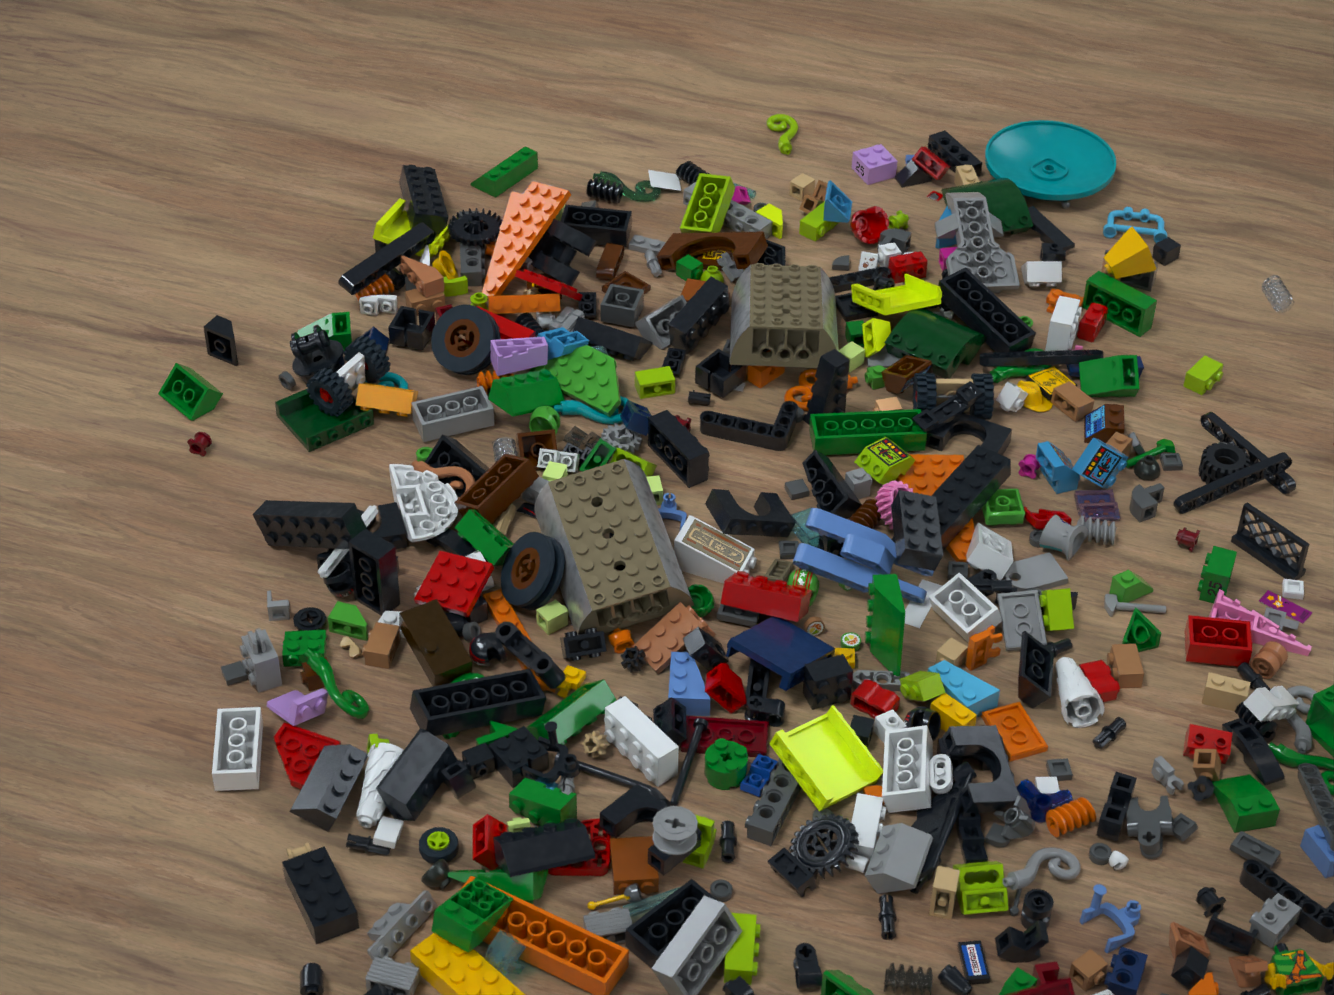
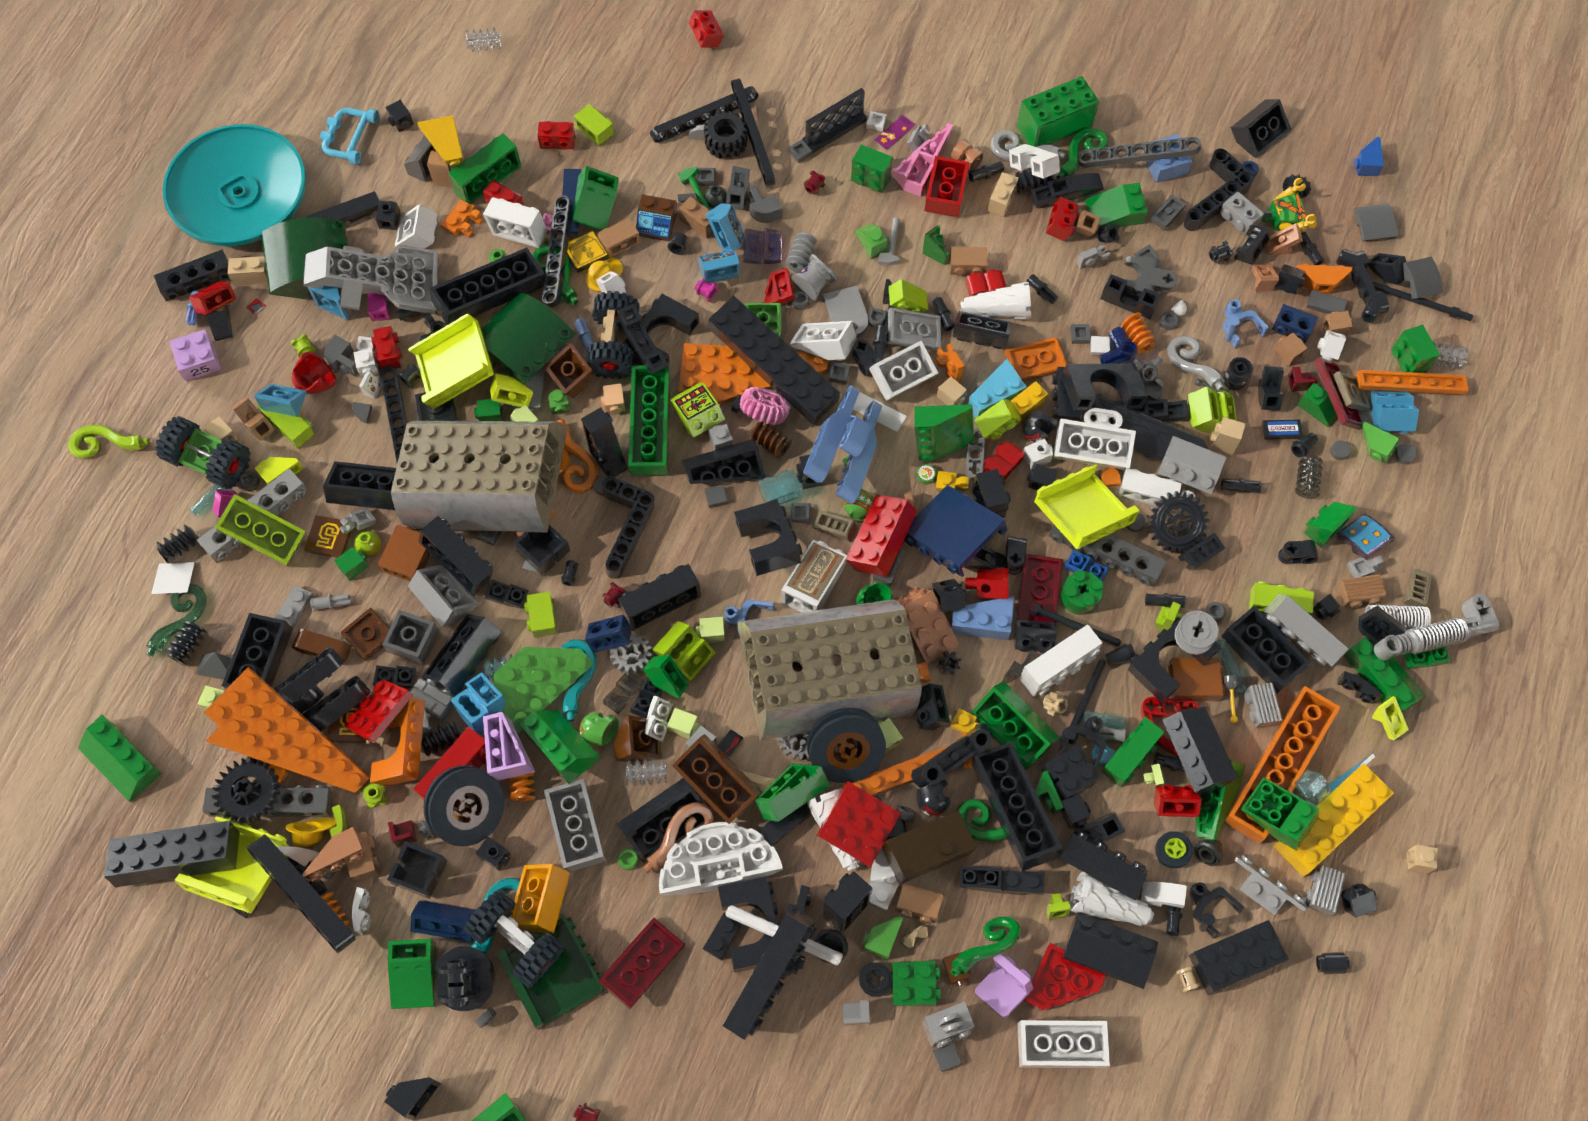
camera: 85 degrees left, 25 degrees up
(329, 463) = (641, 963): none -> dark red tile
(386, 872) = (1203, 899): none -> black piece
(401, 716) = (1002, 881): none -> black slope
(428, 372) = (493, 853): none -> black brick
(582, 788) = (1108, 720): none -> clear light blue axle
(745, 246) = (313, 563): reddish brown arch -> none
(782, 164) = (218, 459): none -> black plate
(916, 530) = (828, 388): black brick -> none
(1079, 442) = (678, 243): none -> black piece
(1151, 476) = (739, 187): none -> dark grey brick
(1180, 350) = (556, 135): none -> red brick
(1227, 529) = (800, 151): none -> dark grey tile

